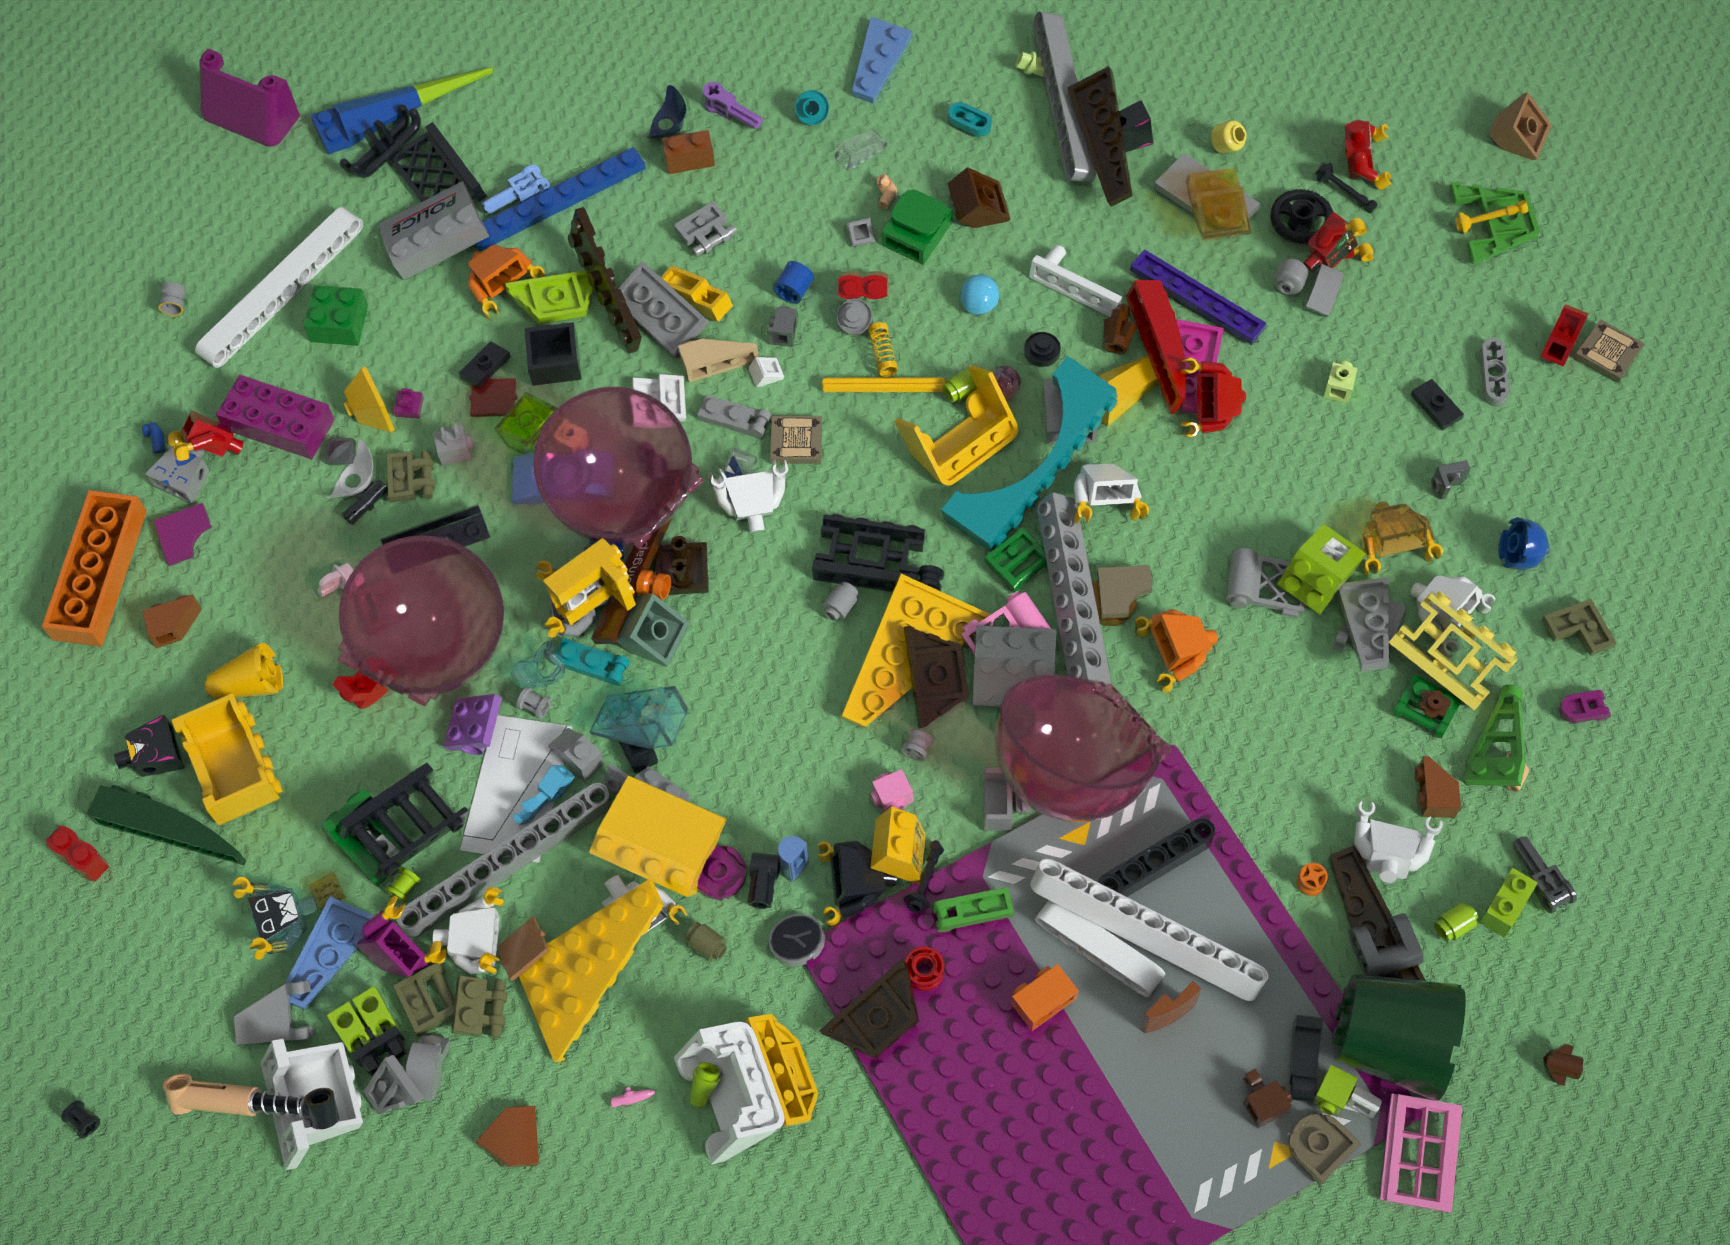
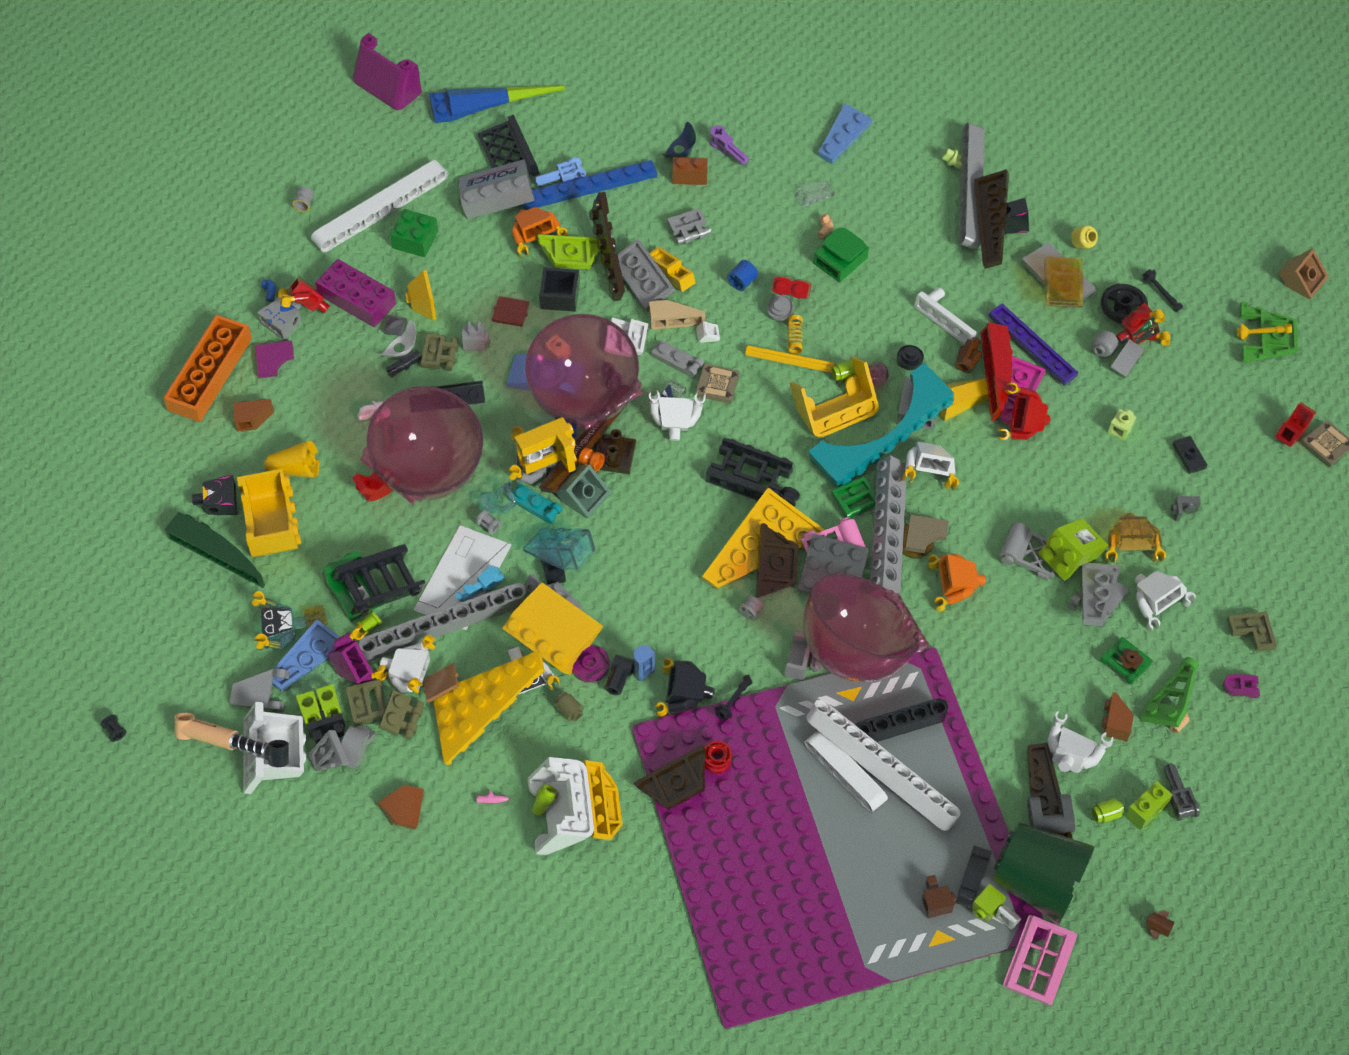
camera: 10 degrees right, 5 degrees down
(77, 853) = (152, 554): red brick -> none
(387, 145) = (478, 124): black piece -> none
(408, 404) = (450, 303): magenta tile -> none
(472, 723) = (442, 526): medium lavender plate -> none
(484, 364) = (510, 287): black plate -> none
(524, 422) = (525, 331): clear neon green slope -> none
(577, 753) = (511, 562): light grey slope -> none
(782, 327) = (727, 304): flat silver brick -> none
(796, 939) = (632, 719): black tile -> none
(812, 107) = (786, 157): teal plate -> none
(840, 601) = (720, 499): light grey brick -> none
(860, 232) = (799, 250): light grey slope -> none
(891, 791) = (724, 635): bright pink brick -> none
(898, 845) = (720, 670): yellow slope -> none
(970, 119) = (900, 189): teal plate -> none
(973, 909) = (762, 725): bright green plate -> none
(978, 199) = (890, 244): reddish brown slope -> none
(979, 294) = (874, 310): medium azure hair -> none
(1044, 996) = (797, 793): orange brick -> none
(1168, 1011) = (882, 823): dark orange slope -> none
(1315, 873) = (1014, 756): orange wheel -> none
(1320, 1145) = (969, 939): dark tan tile -> none
(1360, 151) = (1179, 265): red torso -> none
(1439, 667) = (1142, 633): light yellow fence -> none
(1490, 381) = (1232, 446): light grey beam -> none
(1523, 544) = (1226, 563): blue cylinder -> none

